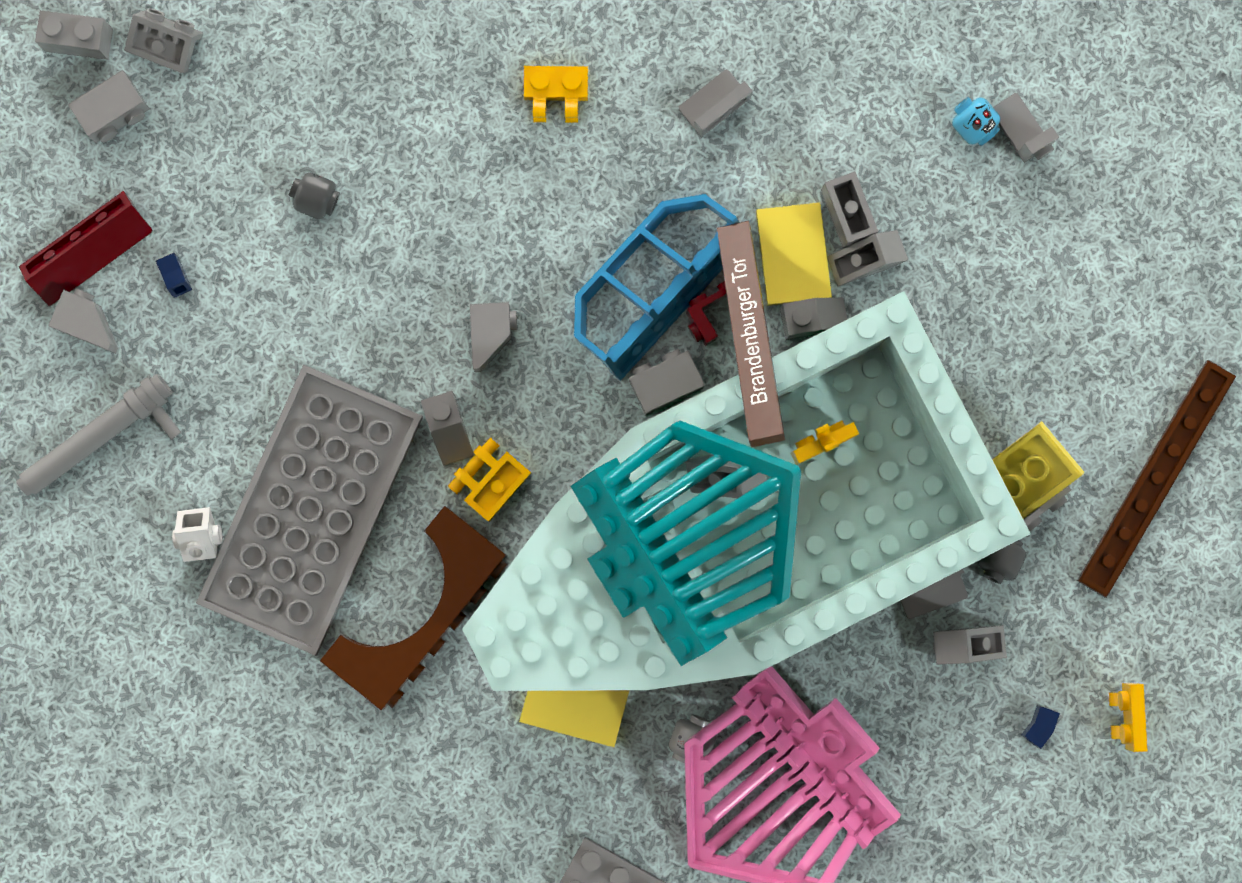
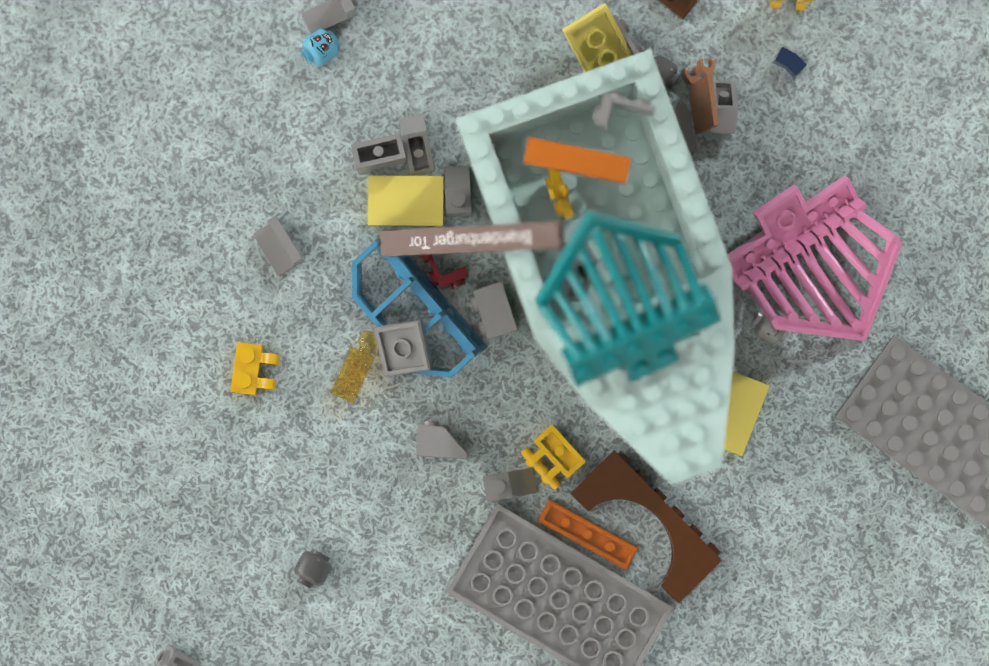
camera: 80 degrees left, 0 degrees up
(396, 536) = (587, 534): none -> orange tile
(572, 217) = (355, 368): none -> clear yellow plate
(605, 272) = (403, 347): none -> light grey tile
(869, 454) = (577, 160): none -> orange tile
(936, 479) = (618, 100): none -> light grey bracket
(980, 615) = (702, 96): none -> nougat flag

